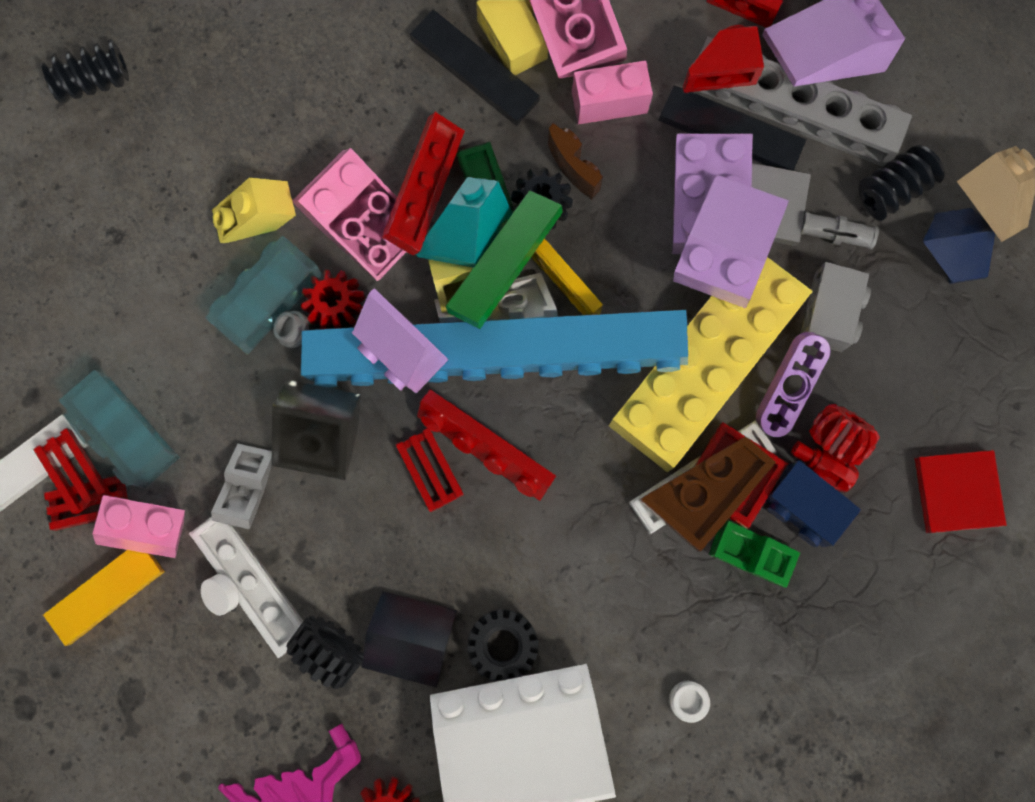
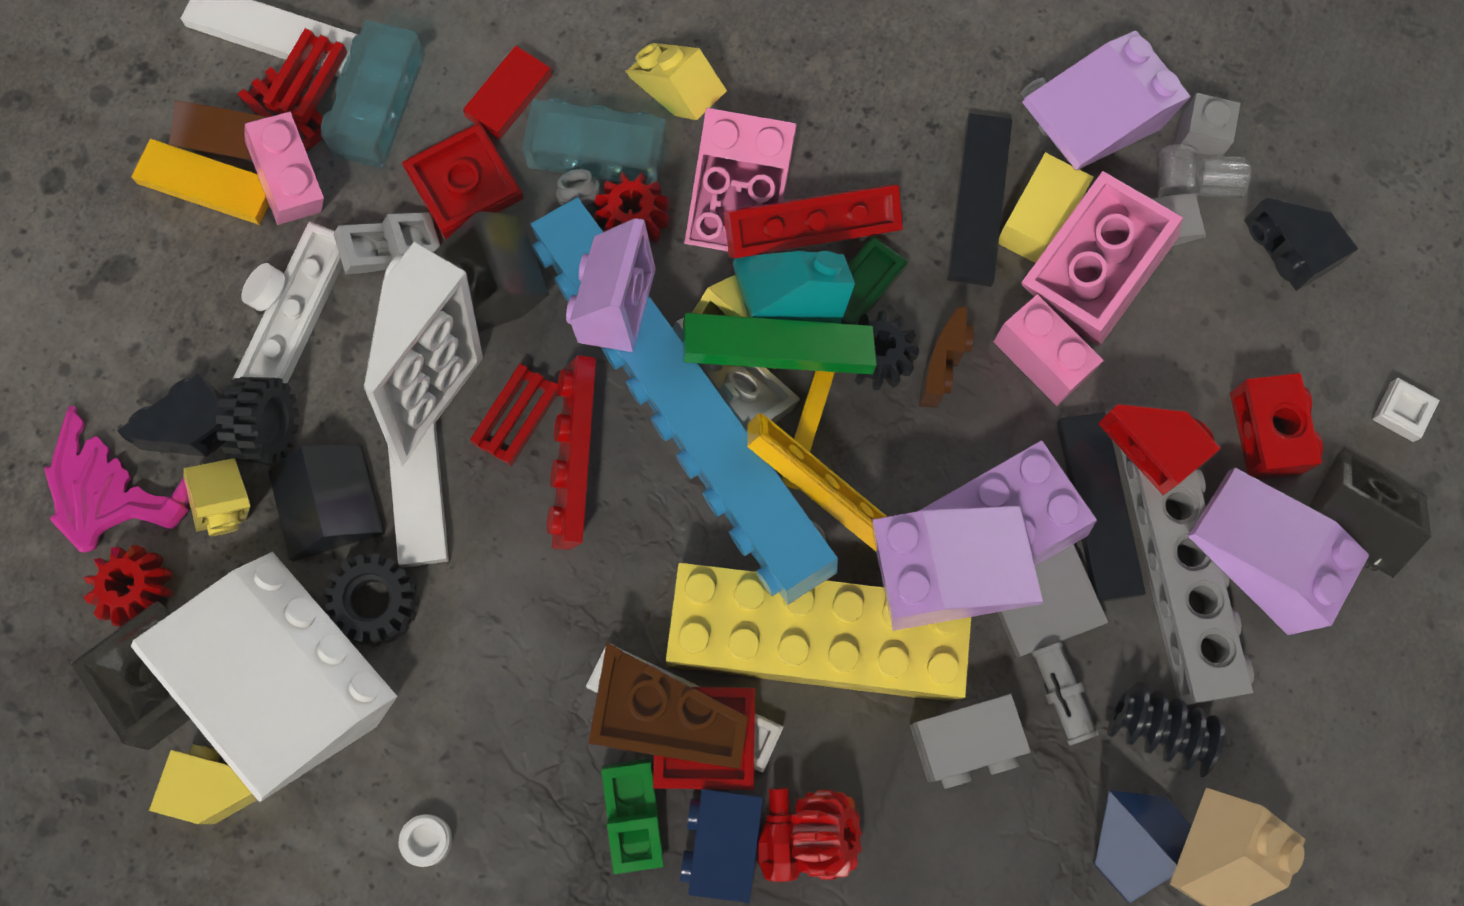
camera: 55 degrees right, 5 degrees down
(69, 562) = (210, 129): none -> reddish brown slope
(180, 334) = (507, 92): none -> red tile
(228, 405) = (462, 178): none -> red tile
(288, 706) = (179, 421): none -> black slope
(348, 488) = (420, 347): none -> white slope
(365, 712) = (216, 496): none -> light yellow slope
(427, 563) = (419, 505): none -> white tile
(614, 293) = (812, 477): none -> yellow tile
(794, 354) = (885, 749): medium lavender beam -> none

